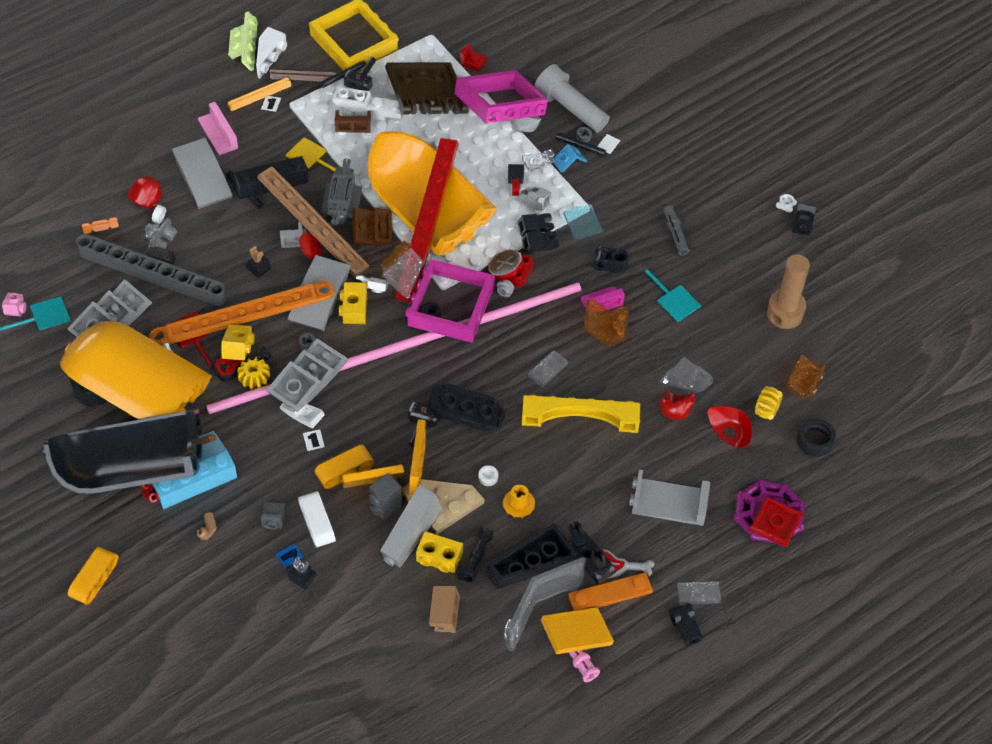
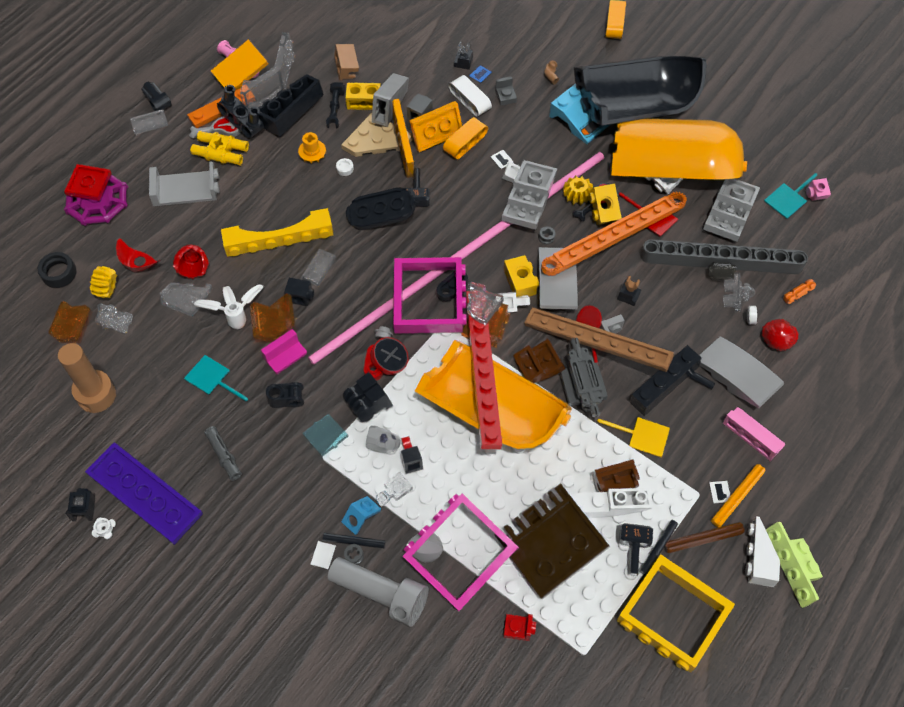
camera: 165 degrees right, 5 degrees up
(574, 347) = (300, 291): none -> black brick
(623, 541) = (219, 148): none -> yellow pin
(641, 340) = (233, 310): none -> white plant
(750, 218) = (144, 493): none -> dark purple plate
(762, 365) = (112, 318): none -> clear hips

